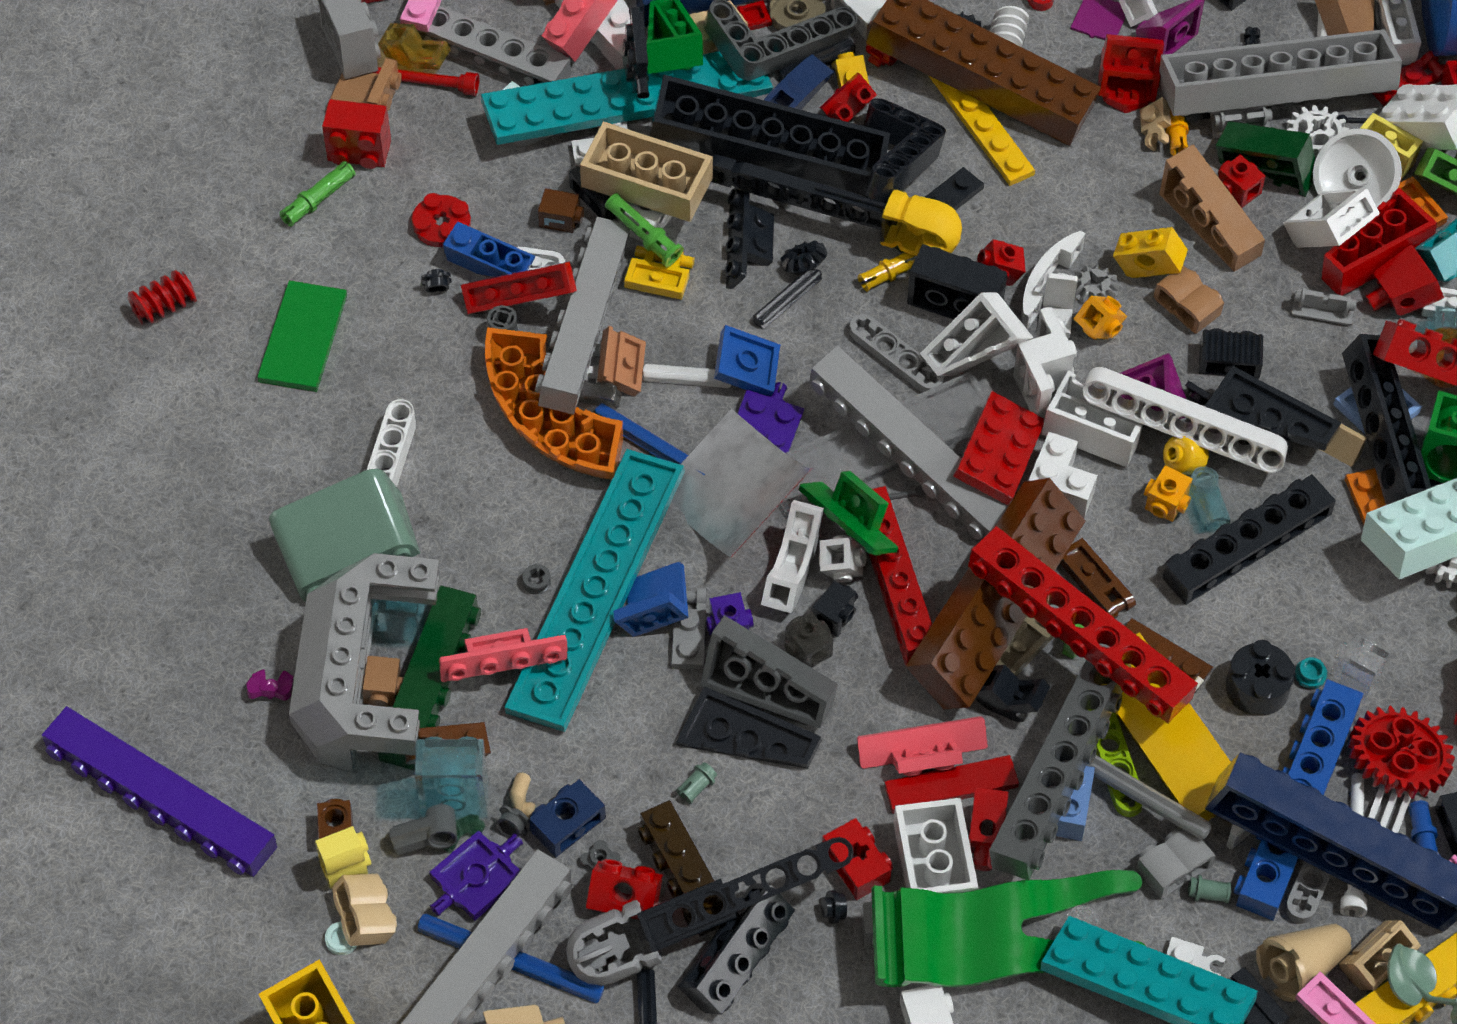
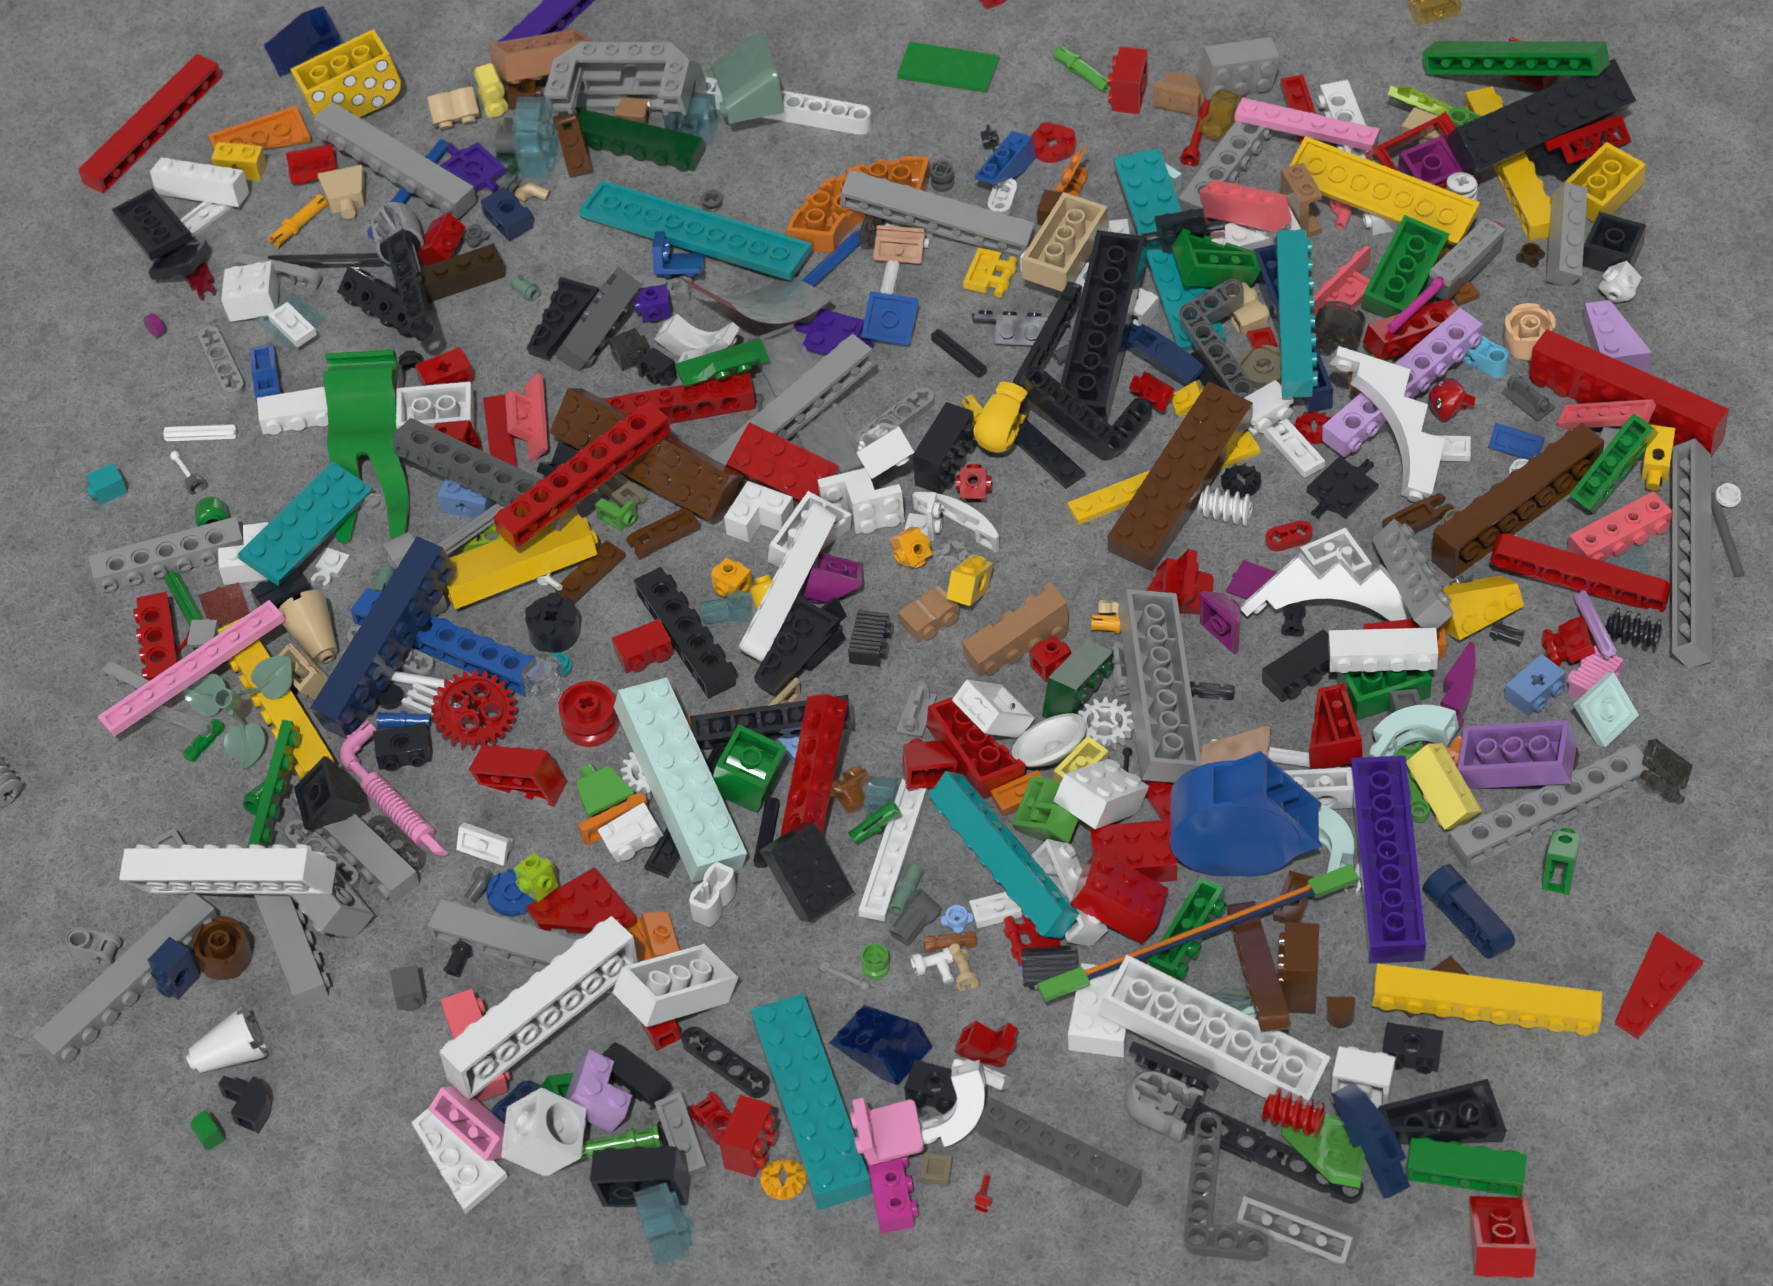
camera: 100 degrees right, 5 degrees down
(284, 791) = (532, 55): none -> nougat brick
(501, 653) = (639, 170): coral bracket -> none
(512, 187) = (1073, 176): none -> orange hinge
(519, 287) = (962, 174): red plate -> none
(656, 235) = (1009, 255): bright green pin -> none
(803, 257) = (994, 360): black gear -> none
(1276, 580) = (642, 646): none -> red brick
(1393, 619) = (588, 713): none -> red wheel

